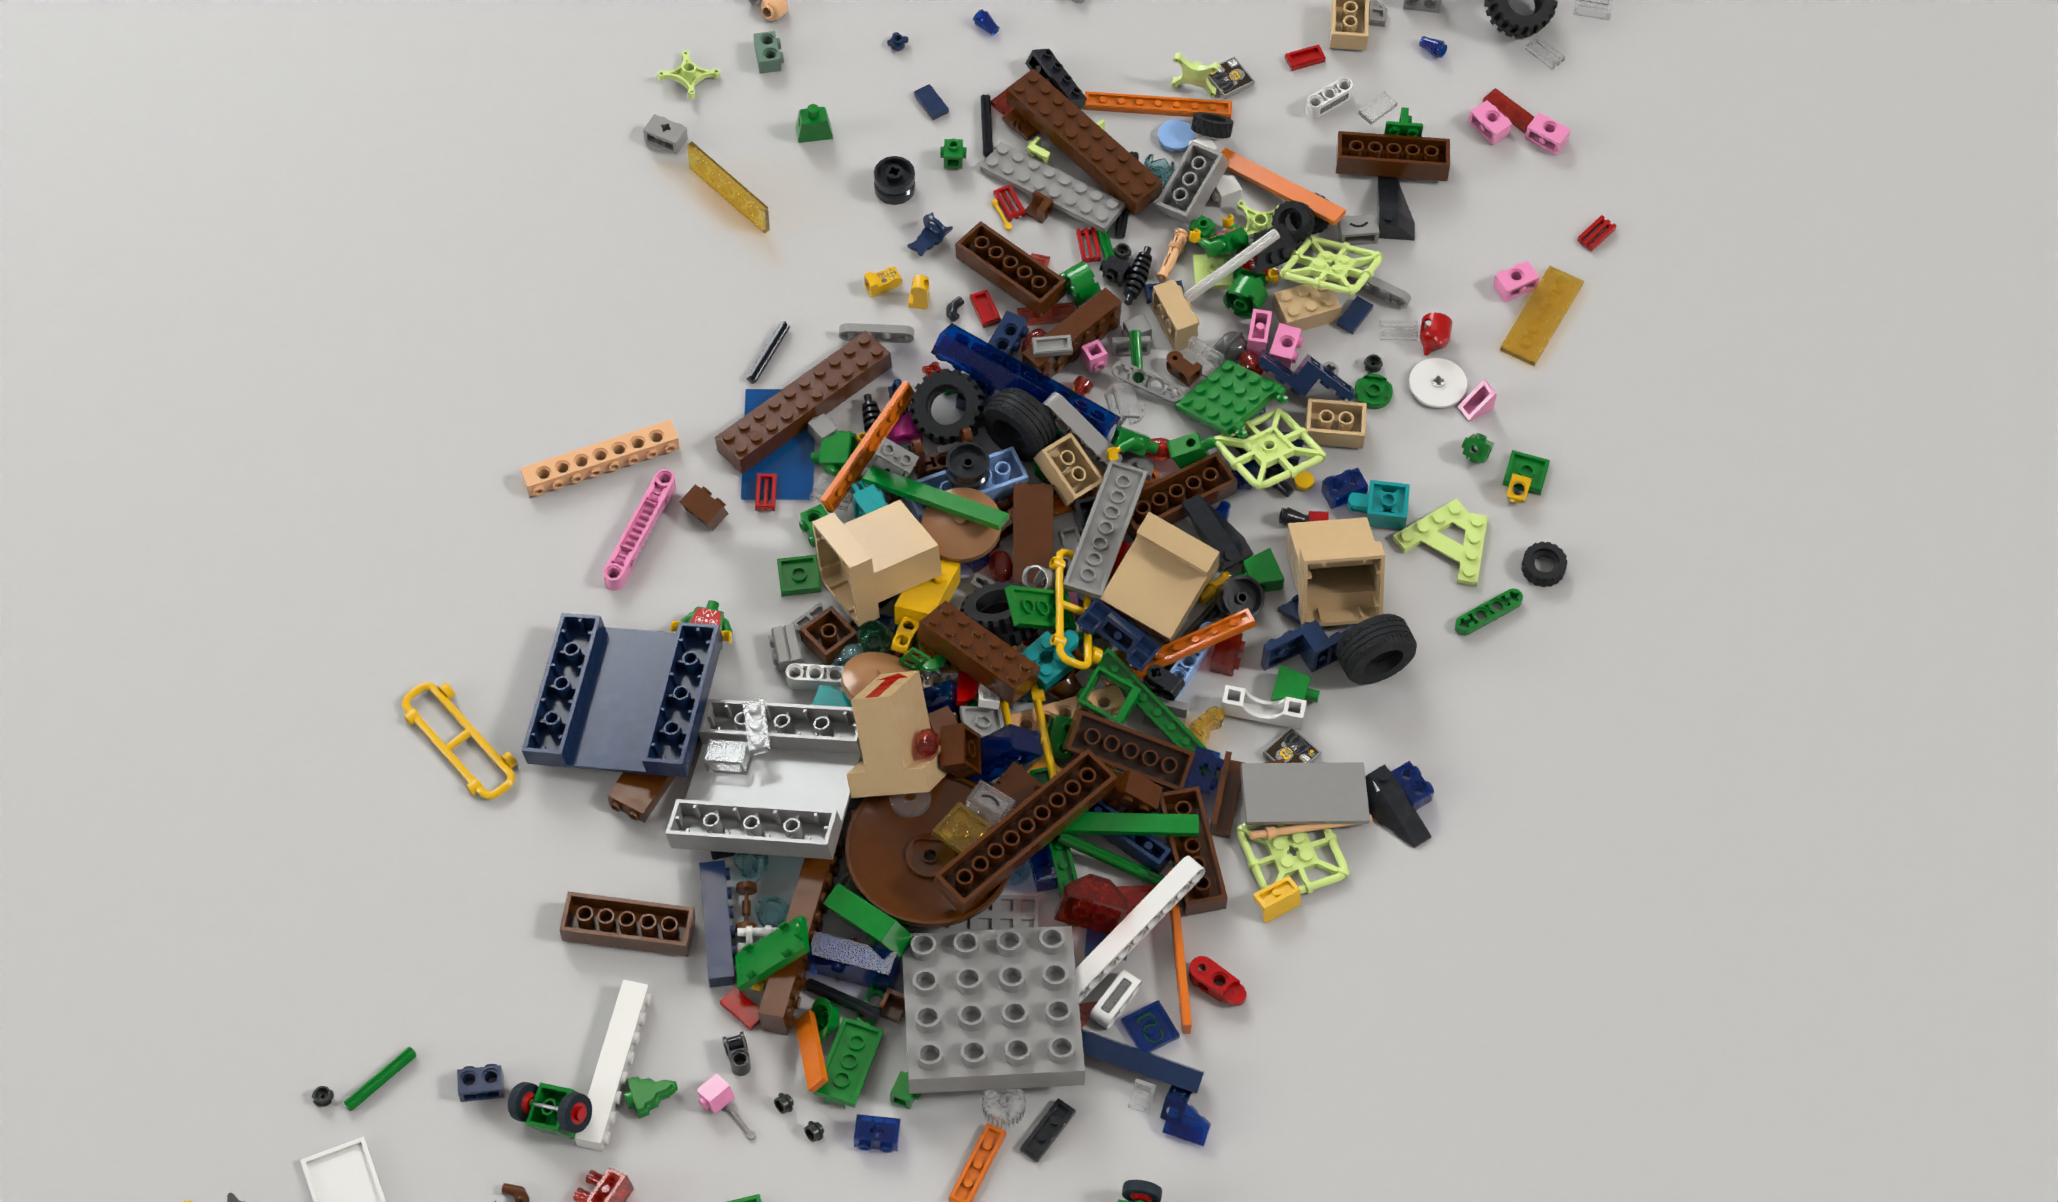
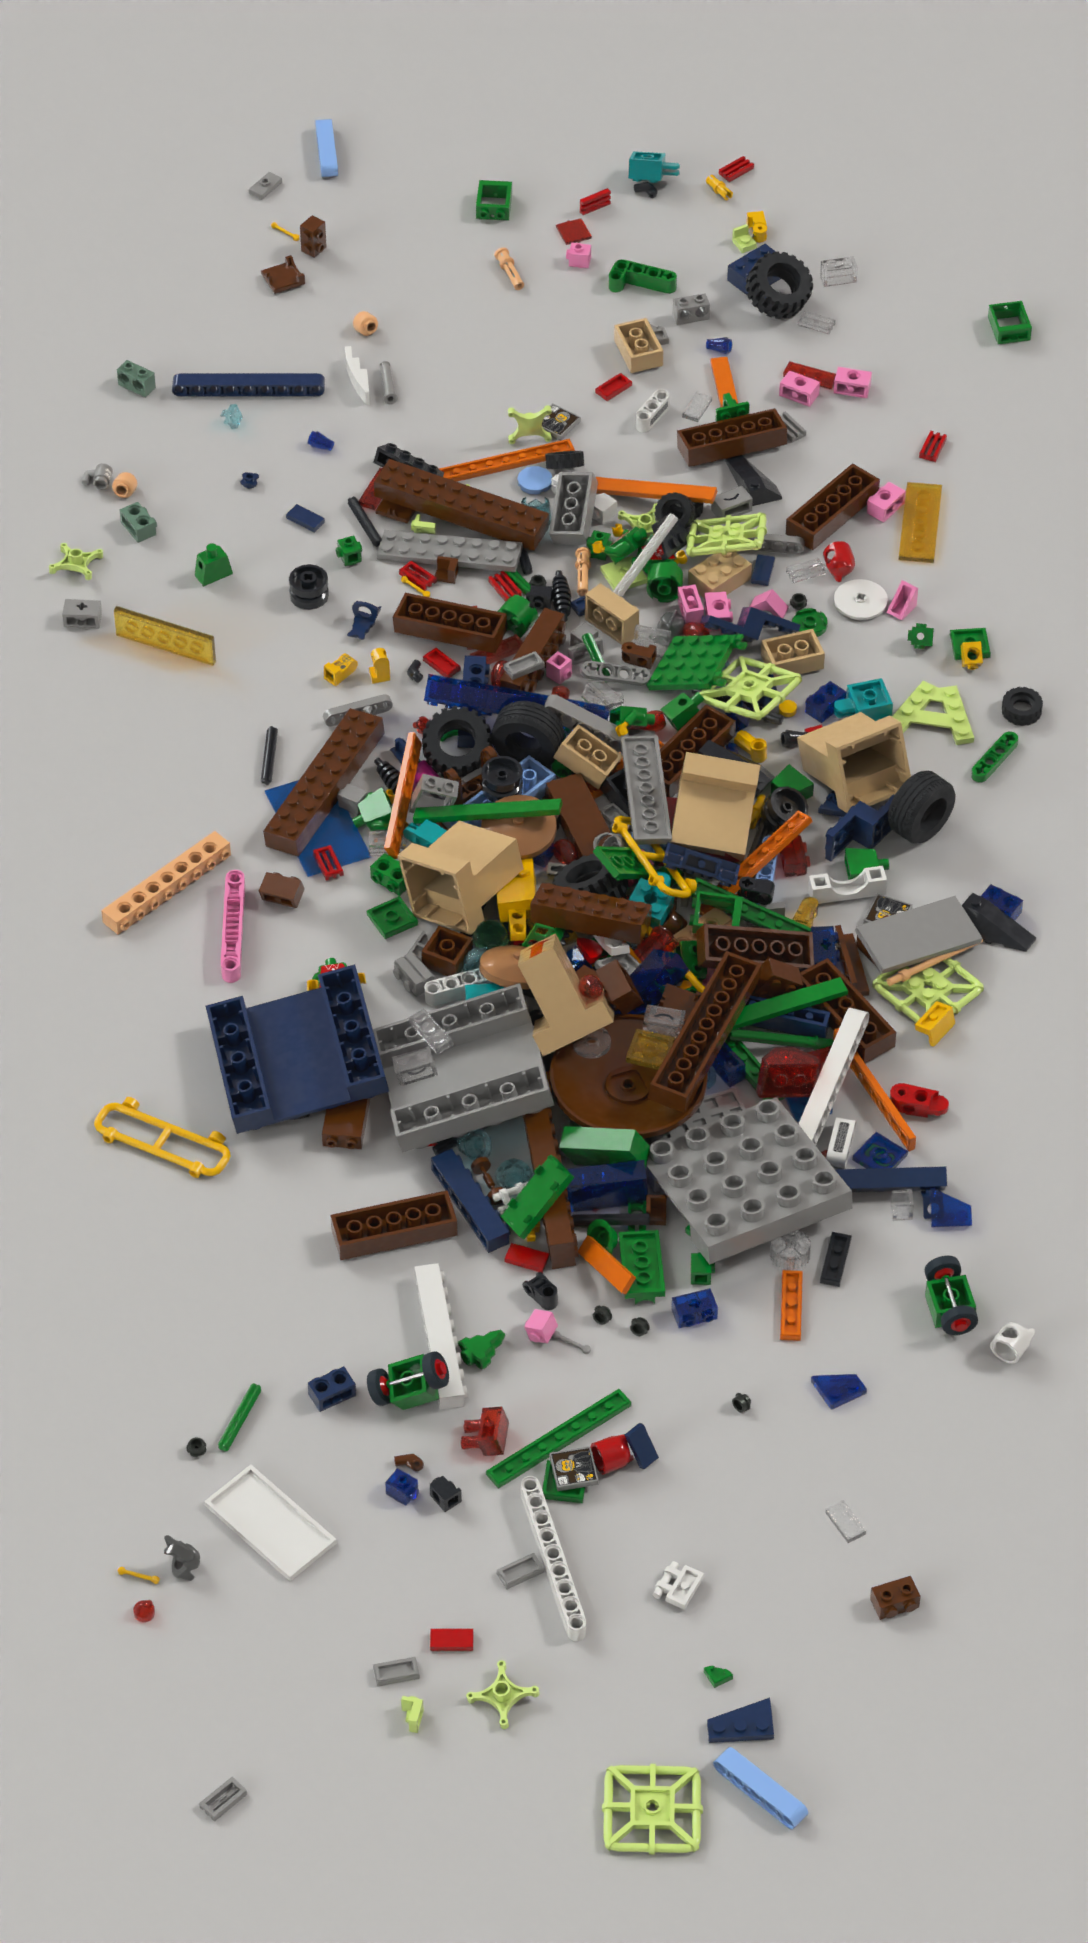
camera: 20 degrees left, 10 degrees down
(1030, 711) = (660, 939): none -> clear red brick
(1245, 510) = (754, 746): none -> yellow piece
(1342, 356) = (770, 602): none -> bright pink slope
(1418, 88) = (723, 378): none -> orange tile
(1457, 175) = (793, 426): none -> light grey tile
(1457, 268) = (832, 506): none -> reddish brown brick
(1741, 132) = (1011, 333): none -> green window

